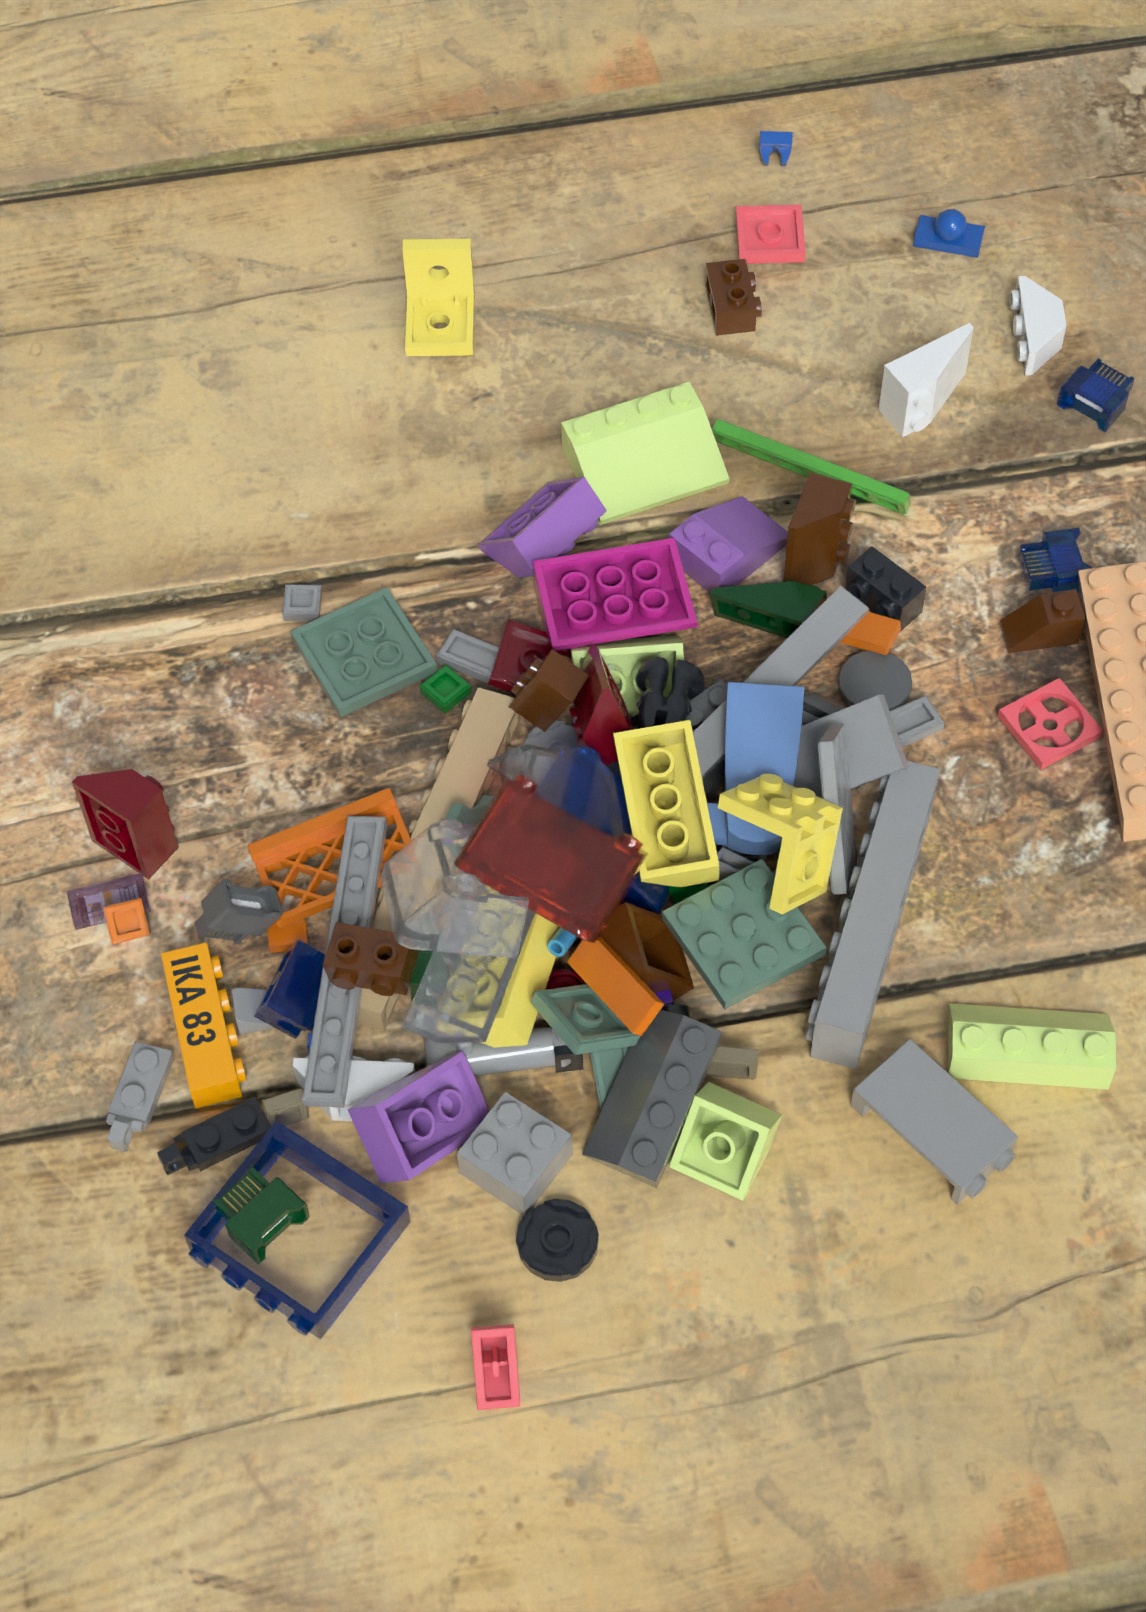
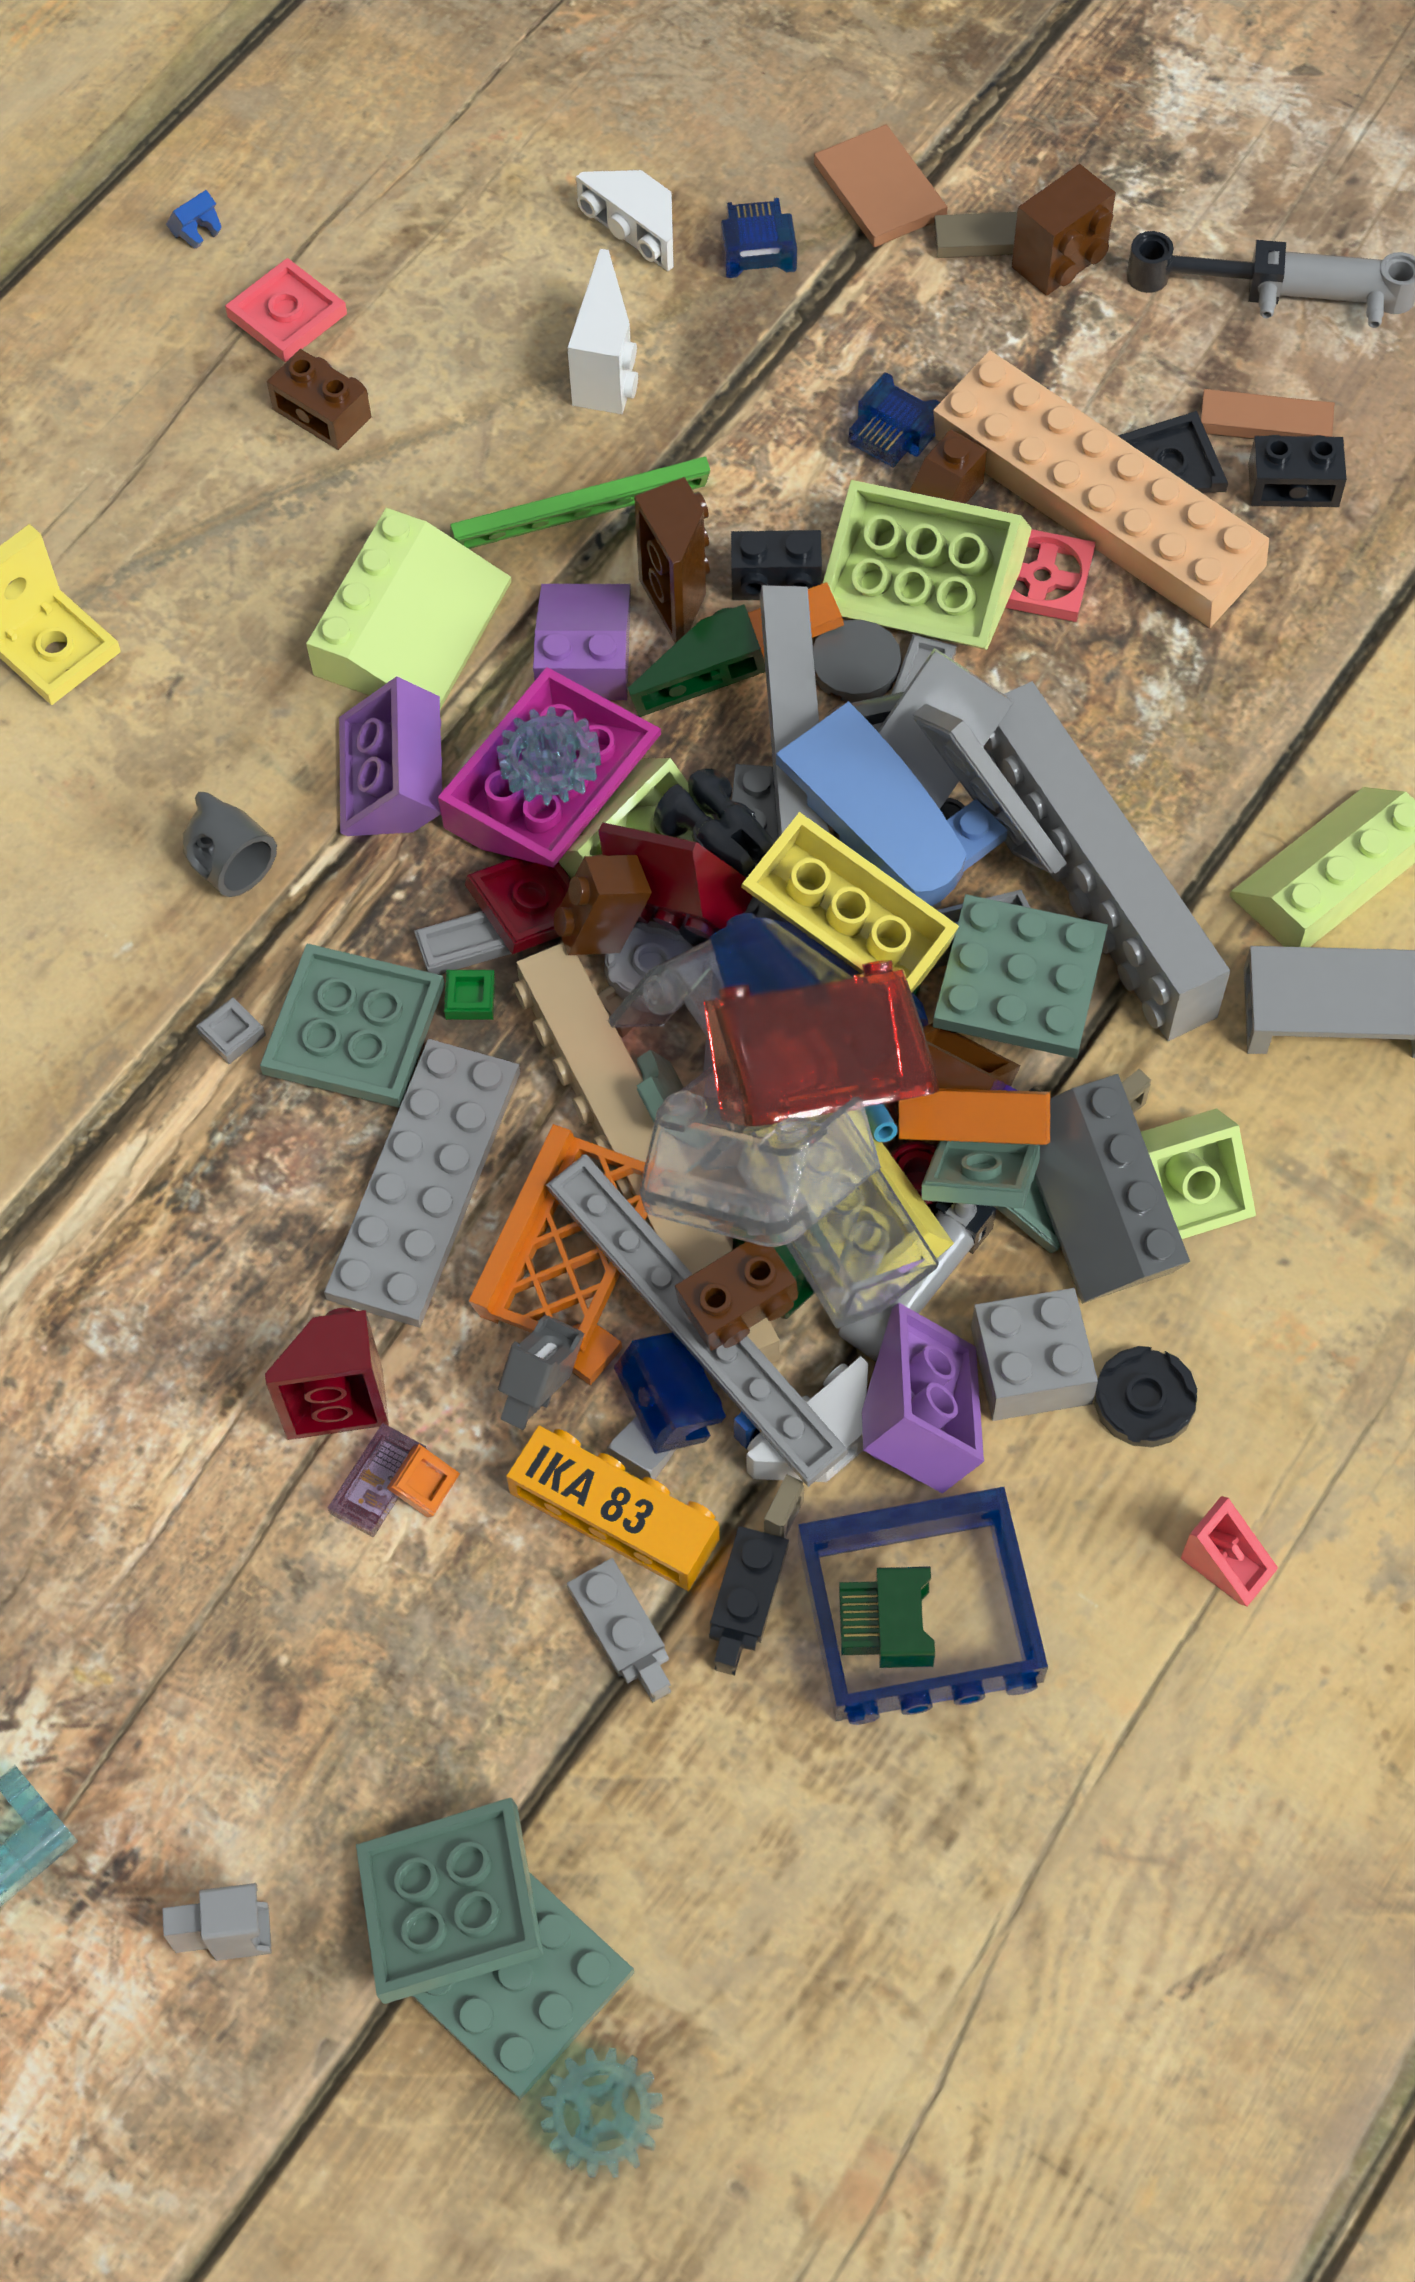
camera: 45 degrees left, 5 degrees up
(307, 767) = (423, 1183): none -> light grey plate
(402, 501) = (227, 846): none -> dark grey piece
(628, 588) = (549, 755): none -> clear light blue gear
(807, 832) = (975, 824): light yellow bracket -> none
(949, 234) = (455, 186): blue tile -> none
(972, 659) = (925, 563): none -> yellowish green slope

